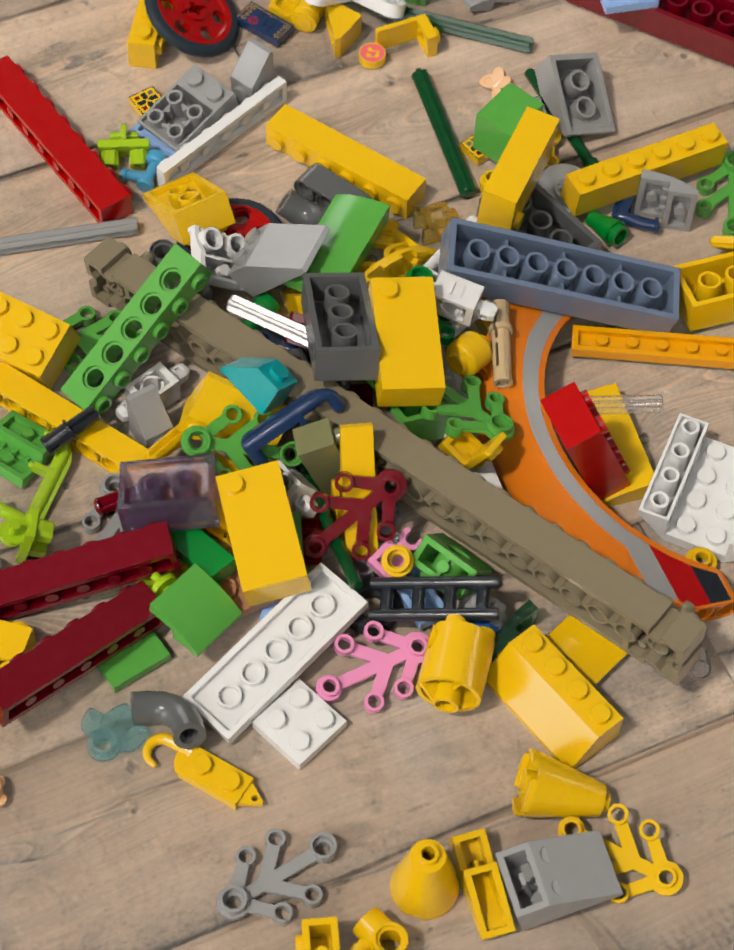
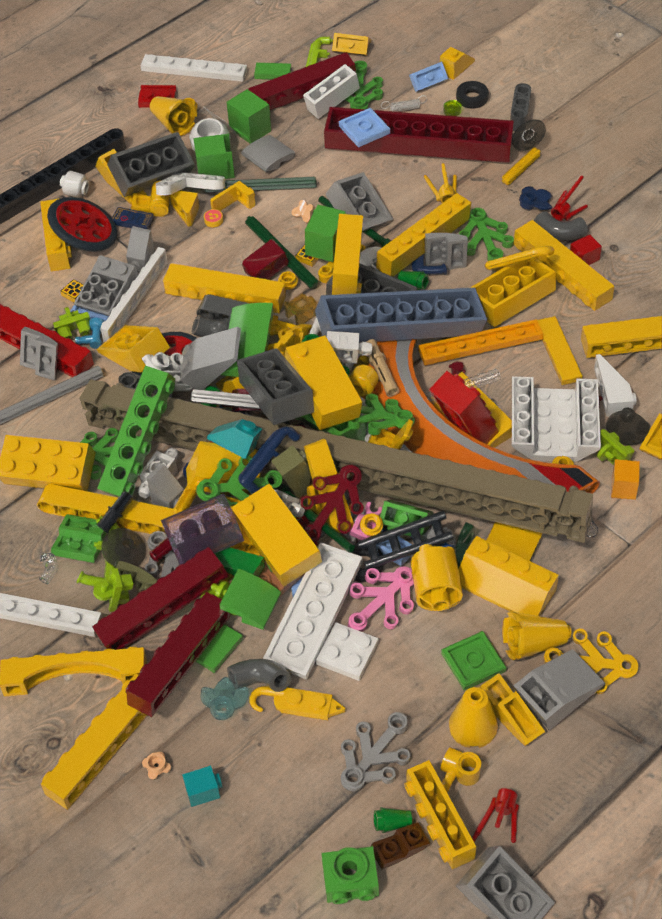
camera: 15 degrees left, 5 degrees down
(33, 842) = (202, 785): none -> teal brick
(56, 492) = (114, 551): none -> clear smoke dish
(62, 176) = (38, 353): none -> light grey slope
(64, 525) = (139, 576): none -> olive slope
(413, 140) = (265, 261): none -> dark red piece
(436, 175) = (289, 278): none -> yellow plate
(462, 796) = (473, 660): none -> bright green tile
(614, 374) = (457, 367): none -> dark red piece
(705, 112) = (445, 191): none -> yellow plant

